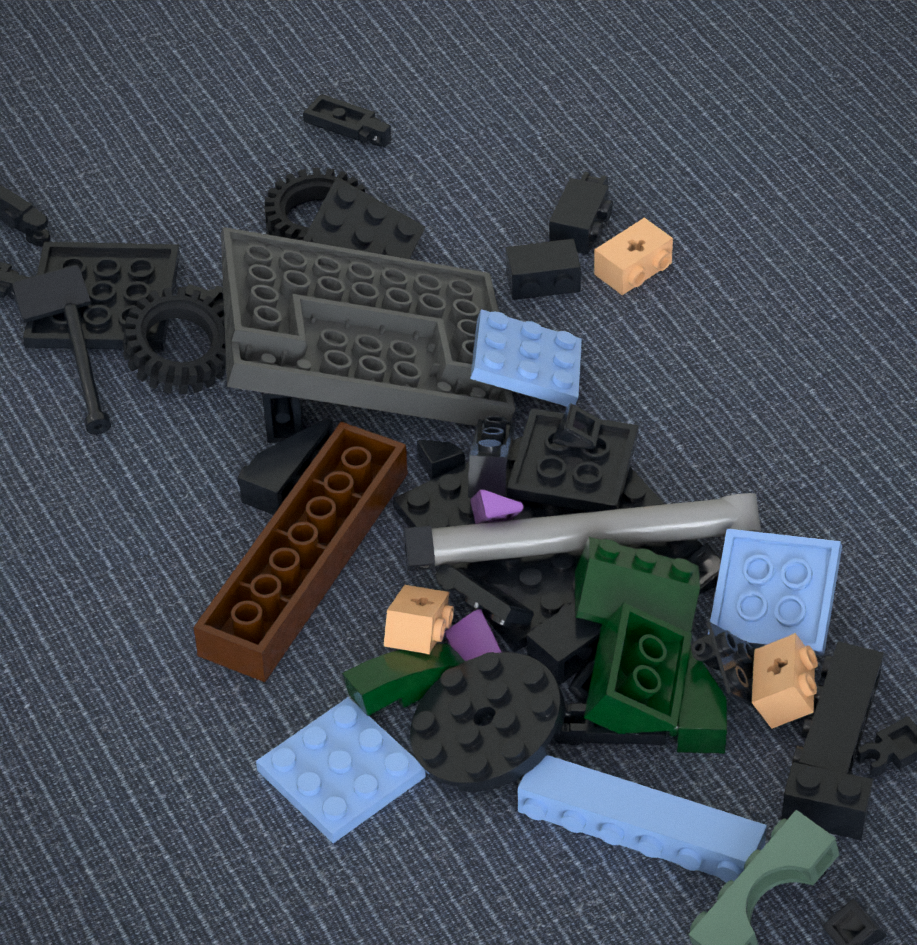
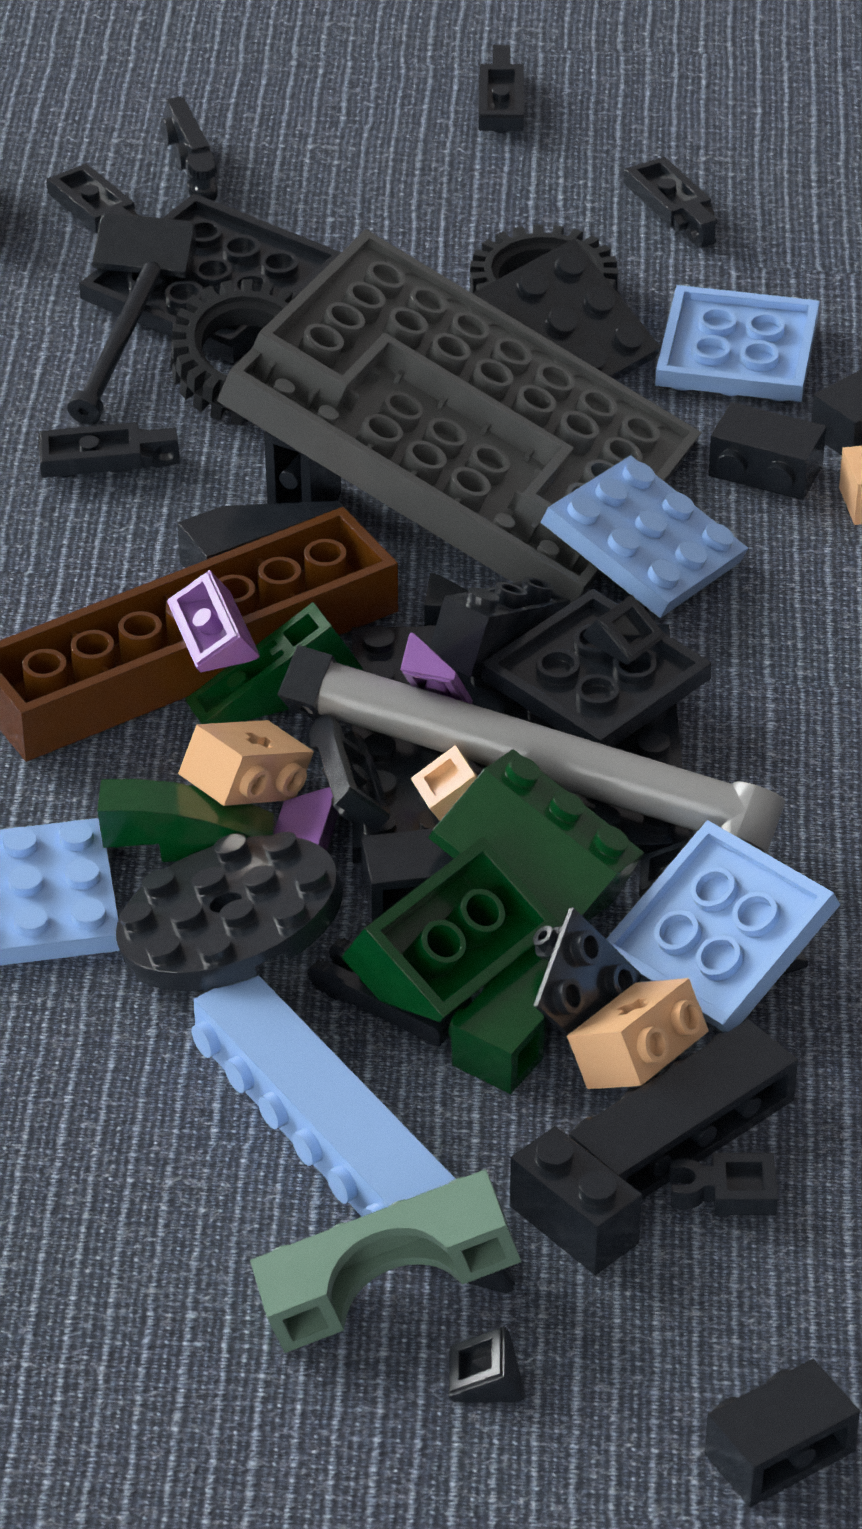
camera: 30 degrees right, 5 degrees down
(135, 447) = (105, 449): none -> black hinge
(179, 88) = (501, 93): none -> black hinge
(332, 539) = (212, 624): none -> medium lavender slope
(375, 552) = (252, 687): none -> dark green slope
(465, 204) = (737, 343): none -> light blue plate
(550, 575) = (444, 781): none -> light nougat plate

